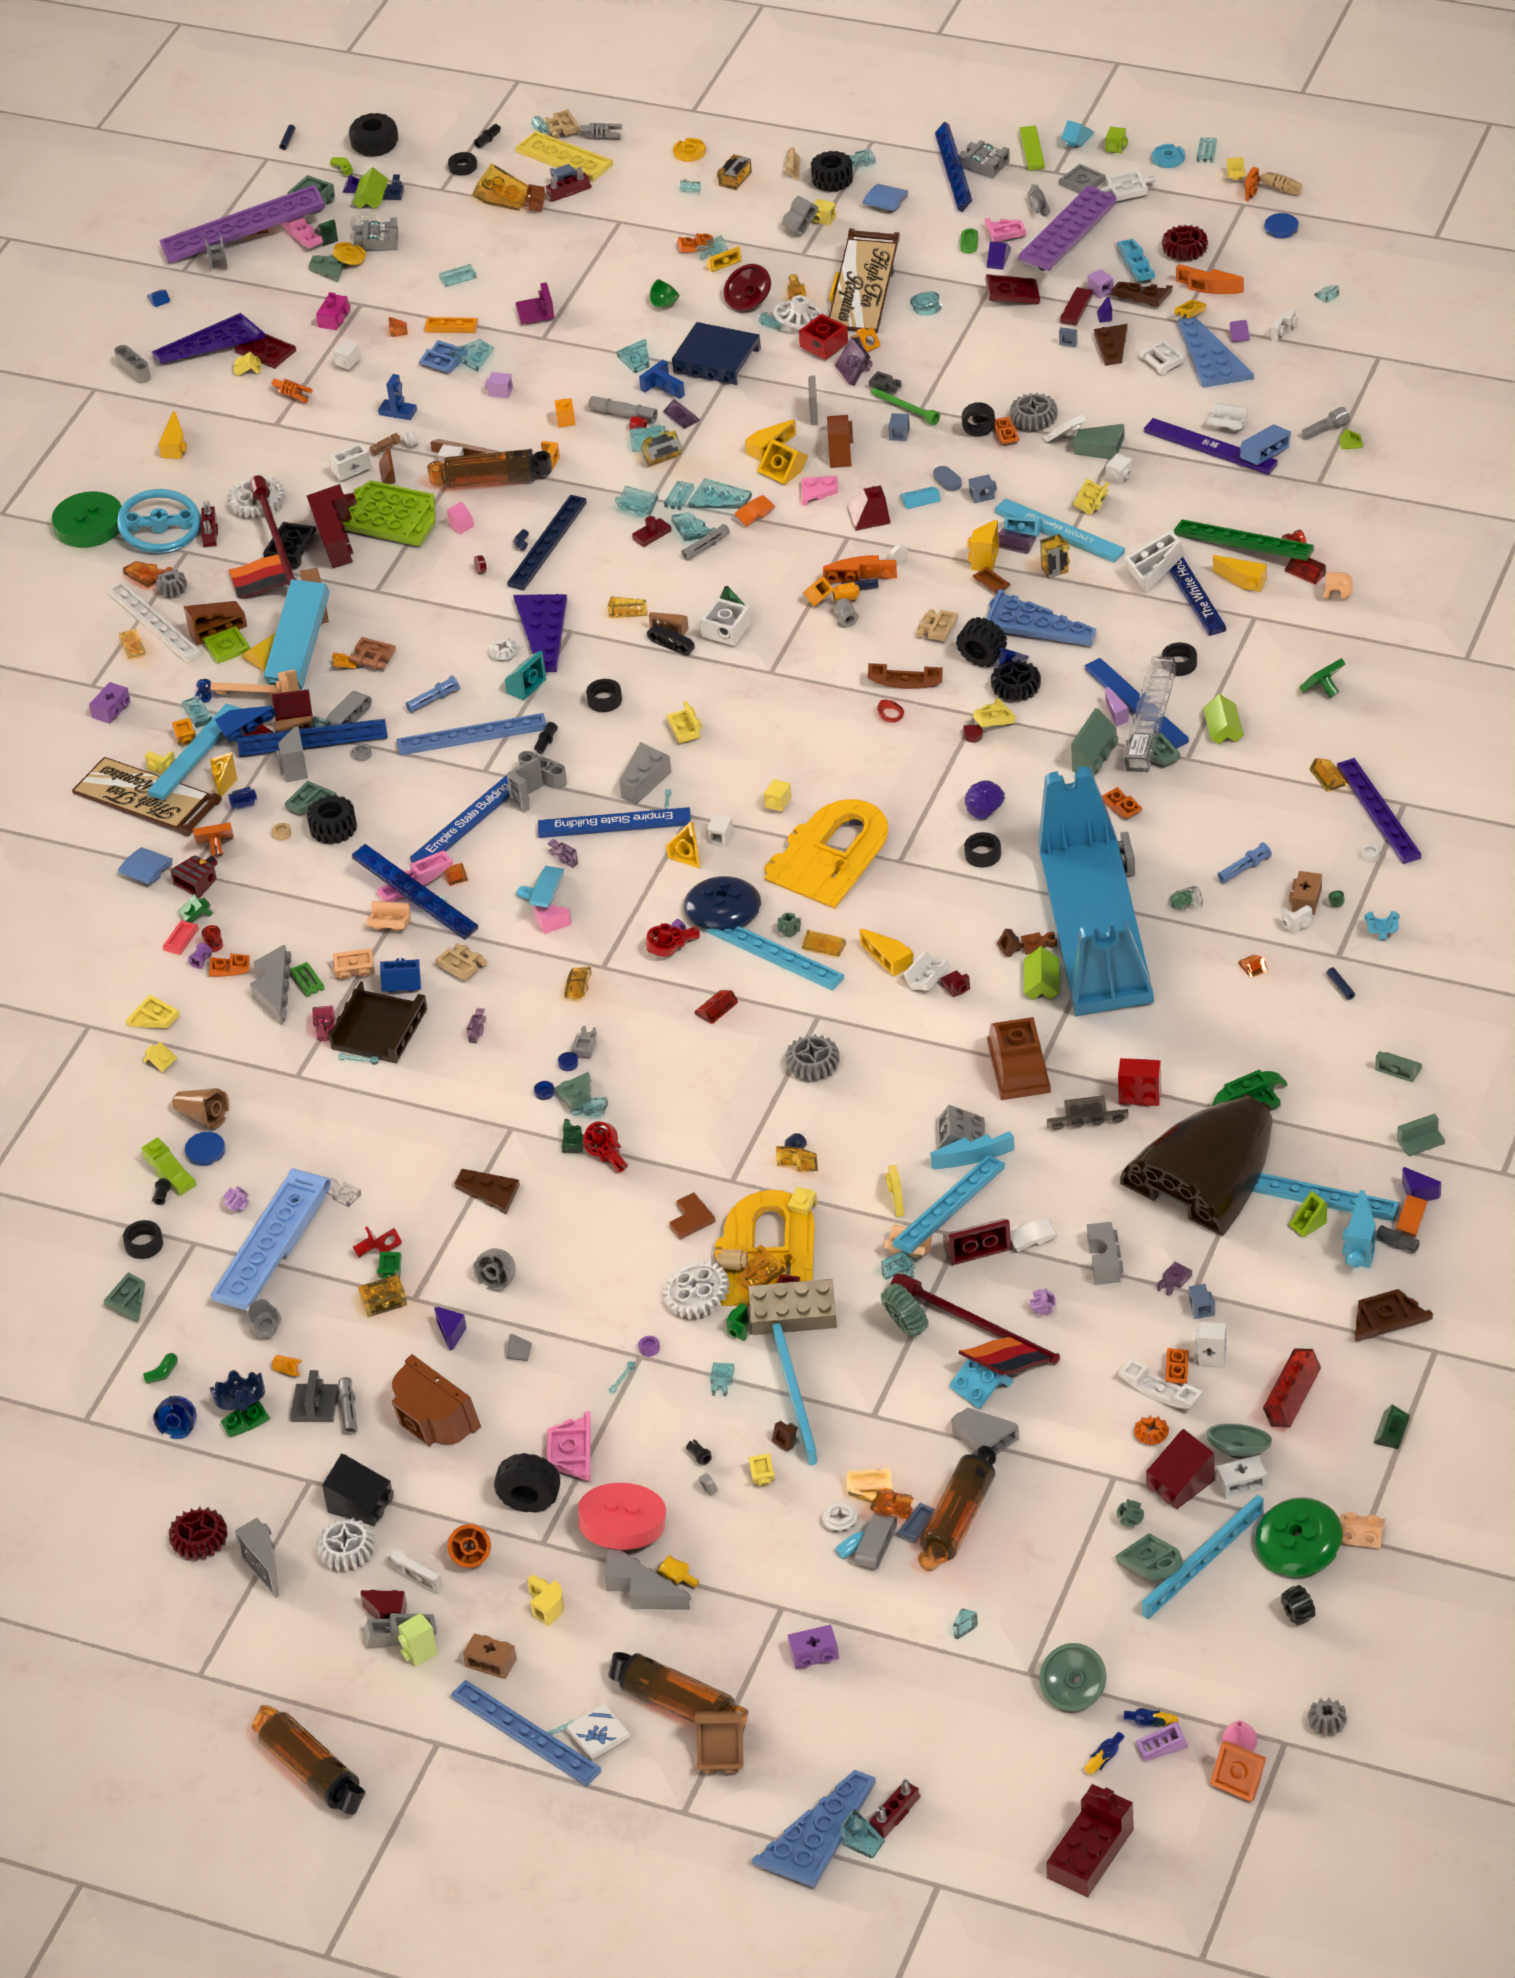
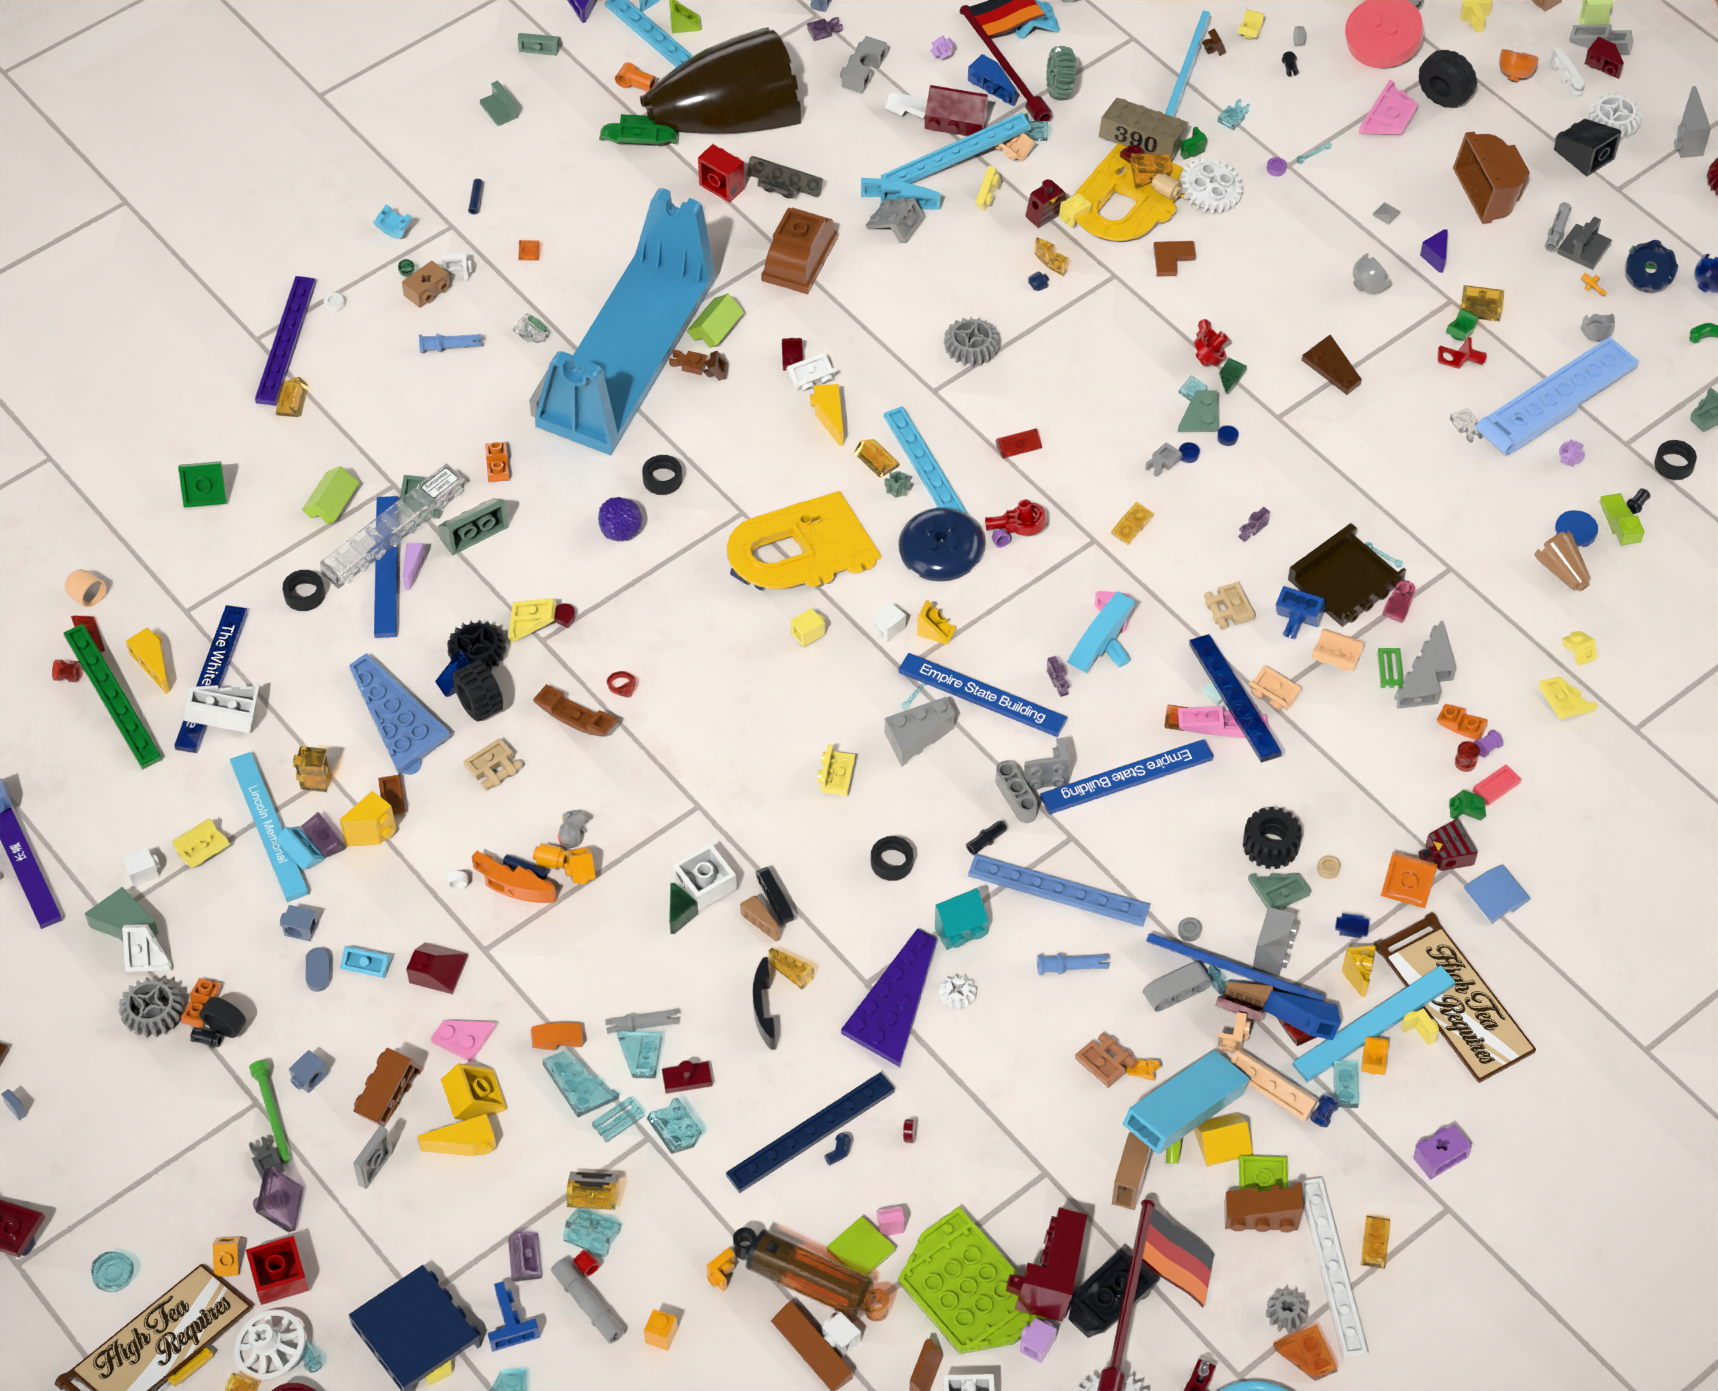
camera: 155 degrees left, 10 degrees up
(474, 500) = (861, 1247): none -> lime tile
(619, 571) = (764, 1025): none -> black slope
(834, 1191) = (1045, 203): none -> dark red torso
(975, 1297) = (991, 78): none -> blue slope
(1307, 1141) = (630, 75): none -> orange piece

